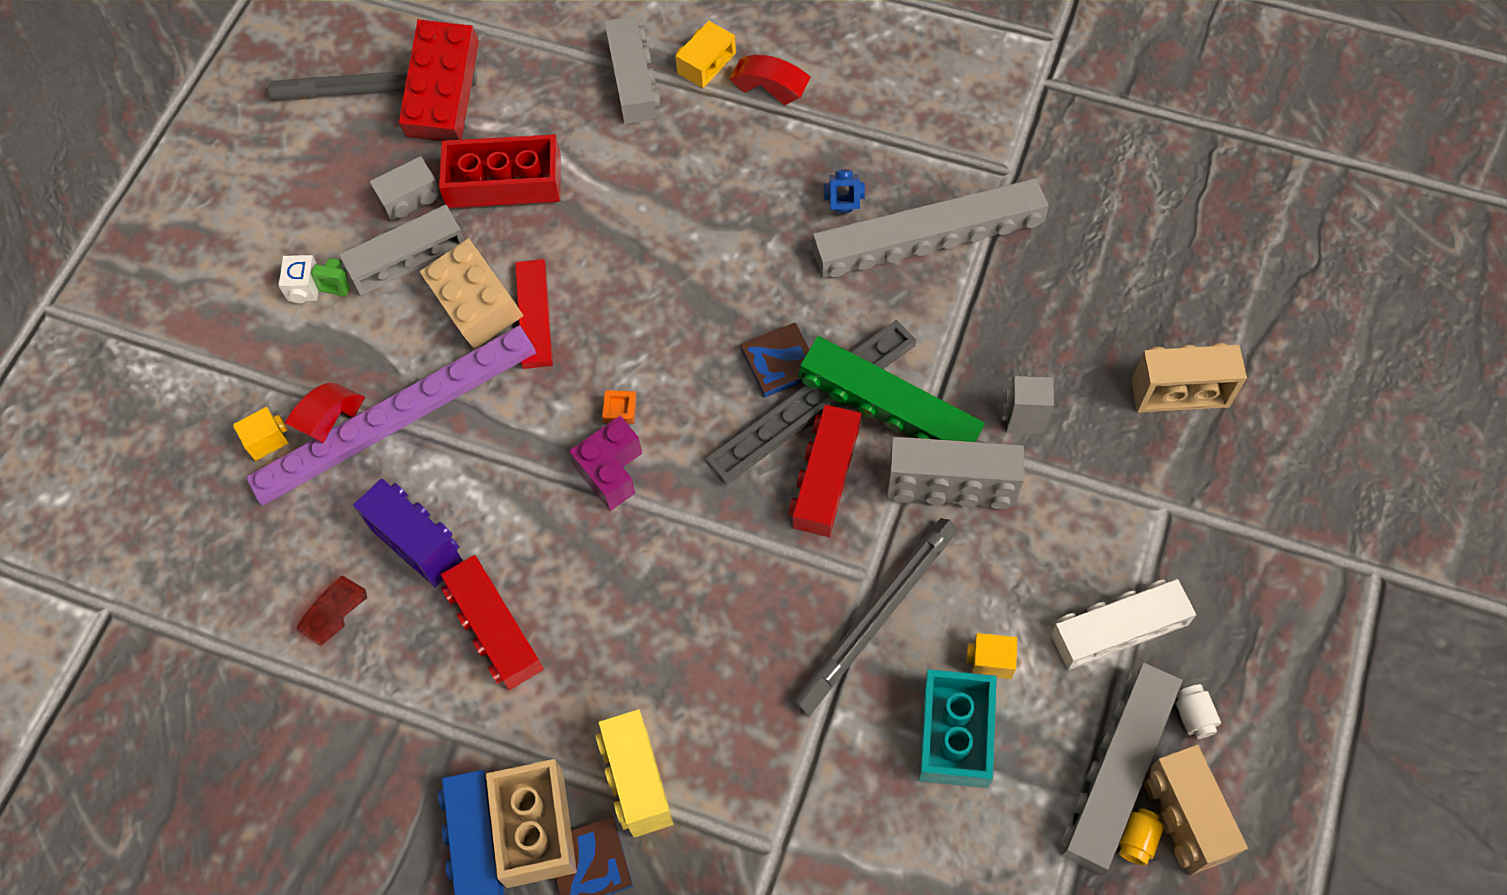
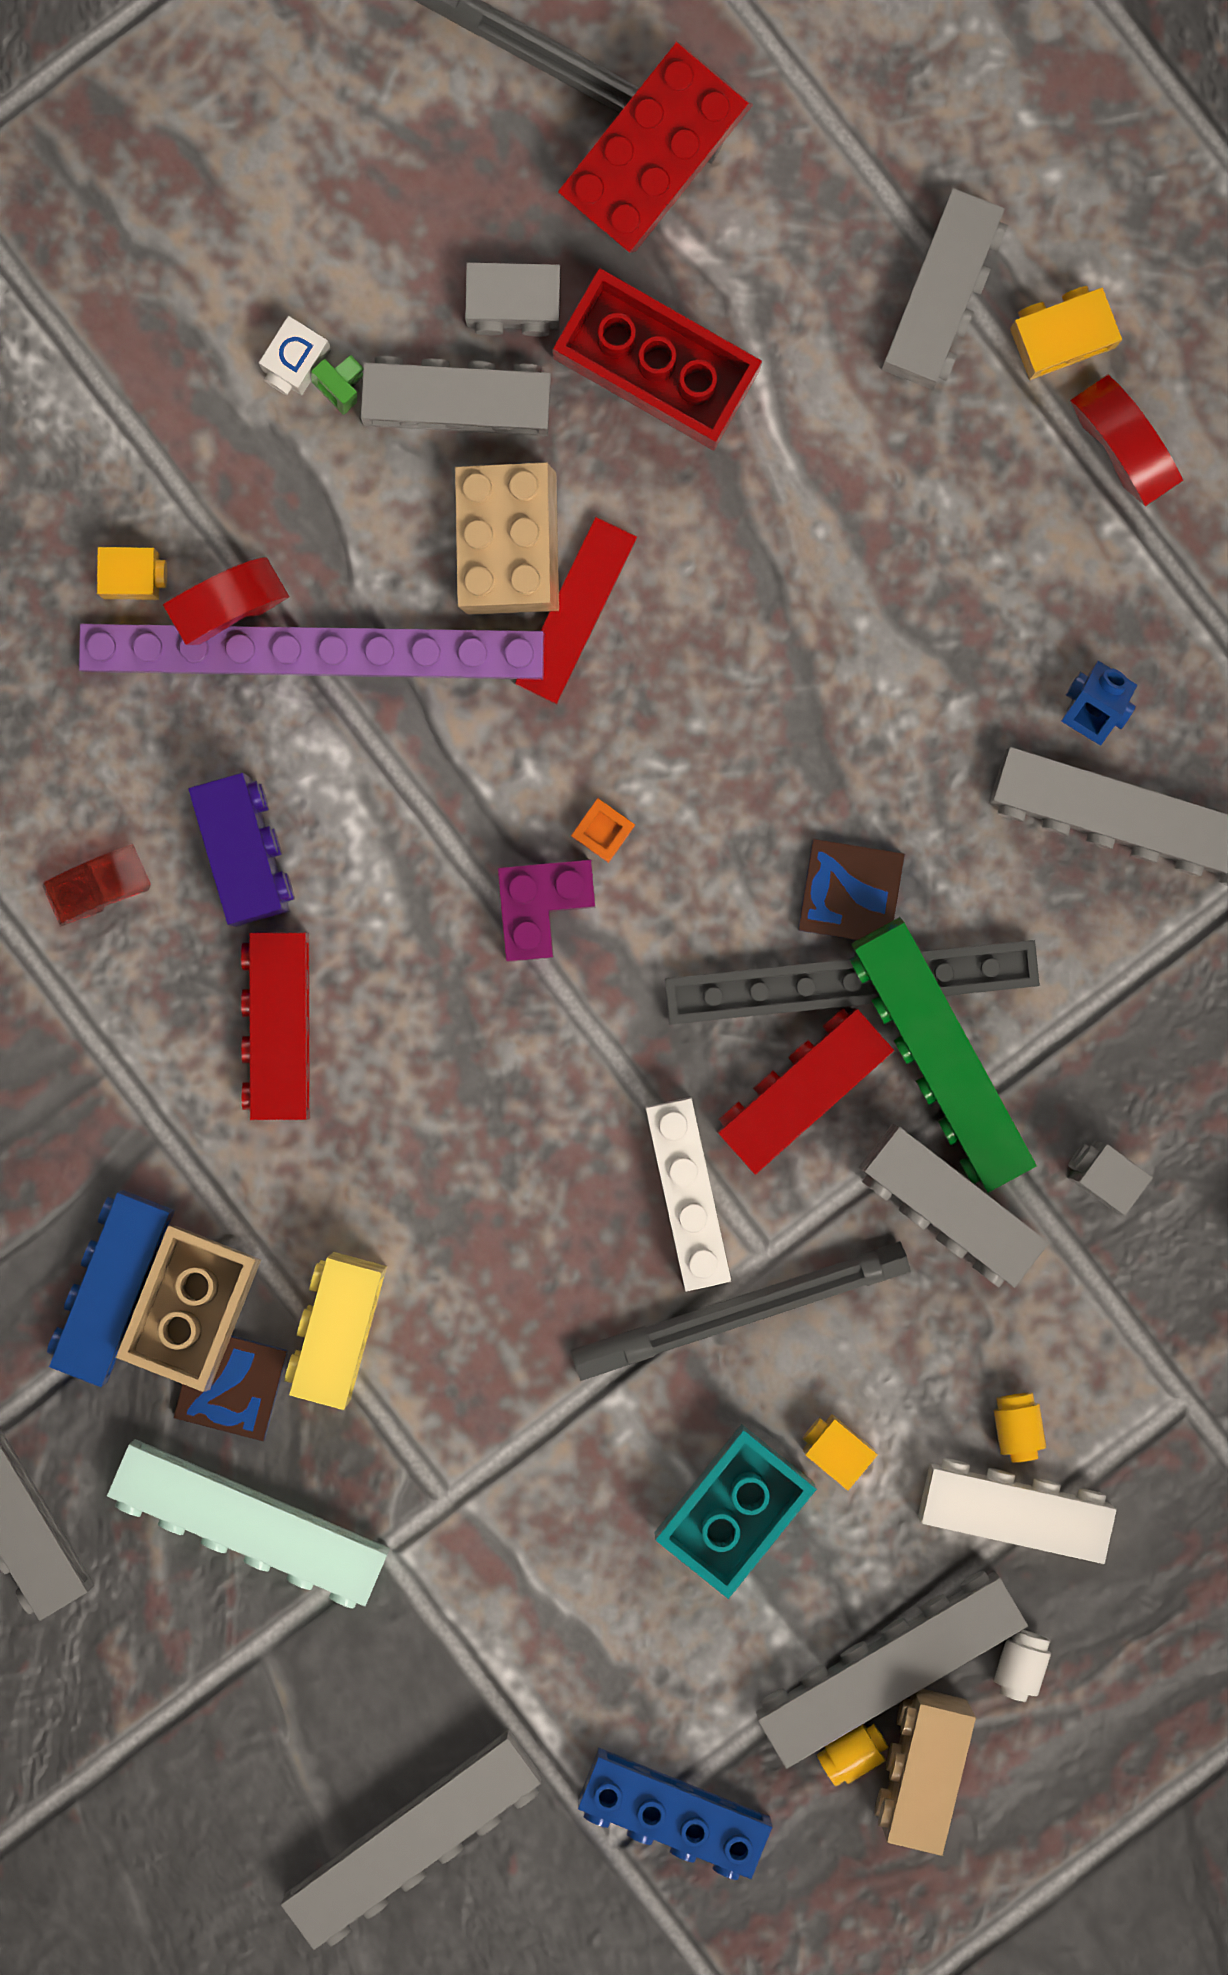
camera: 25 degrees right, 25 degrees up
(799, 564) = (688, 1194): none -> white brick
(1085, 574) = (1019, 1426): none -> yellow brick

